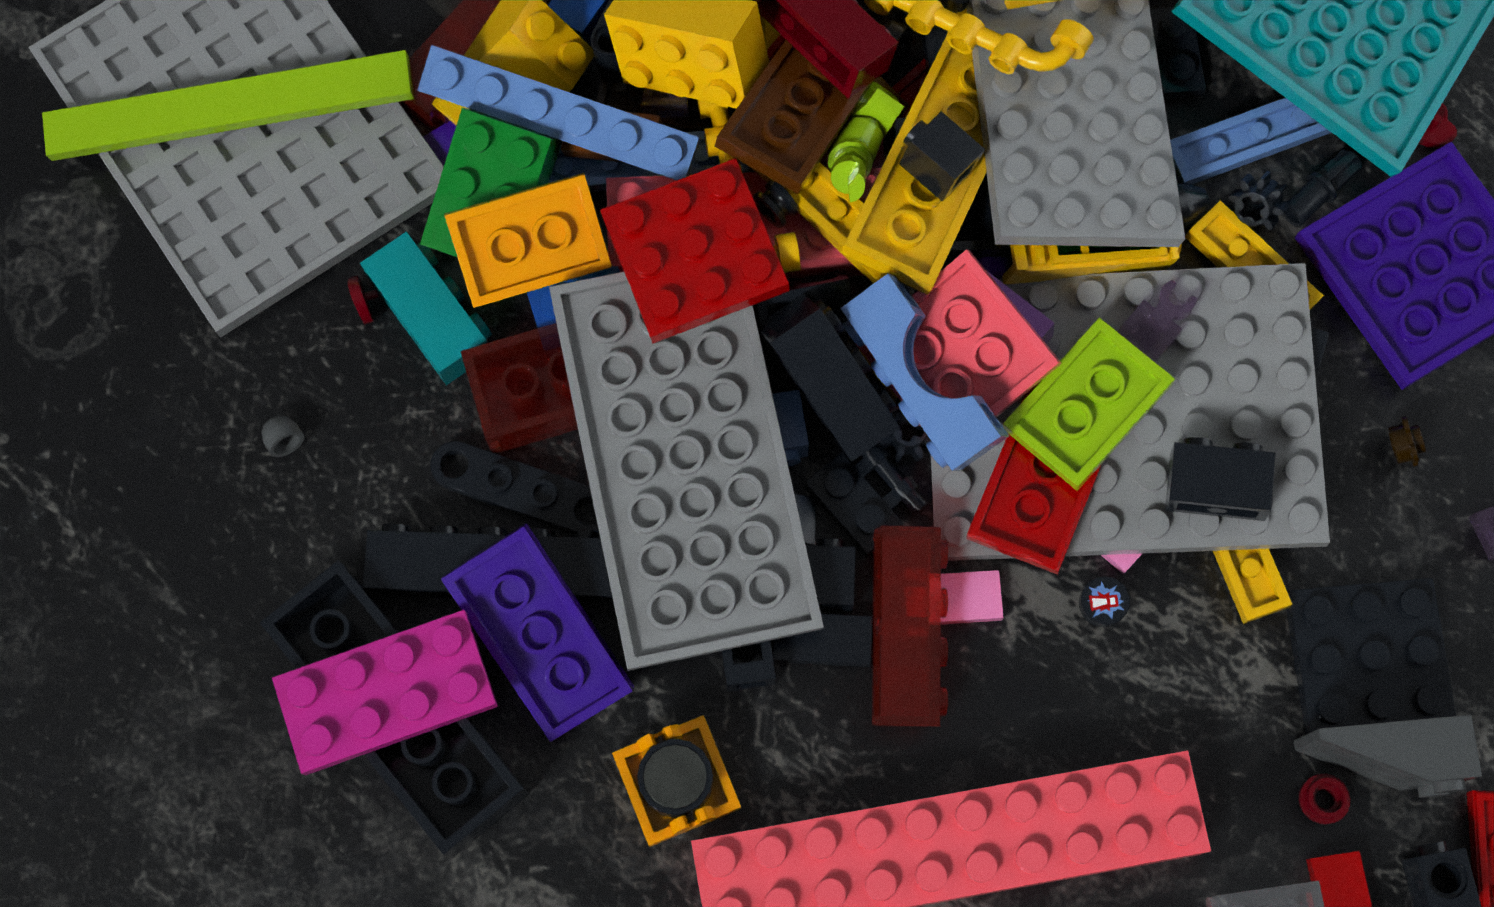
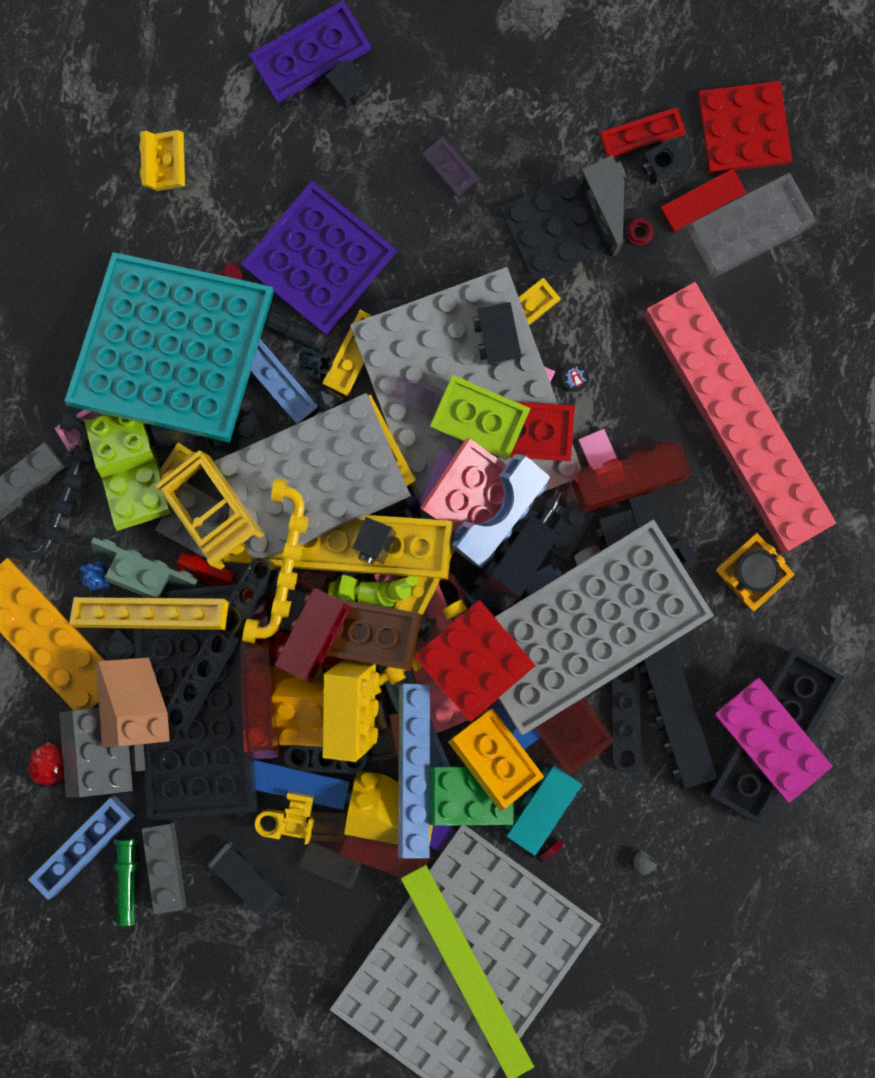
camera: 115 degrees left, 10 degrees up
(538, 632) = (707, 673): dark purple plate -> none
(1406, 442) = (428, 241): dark brown plate -> none

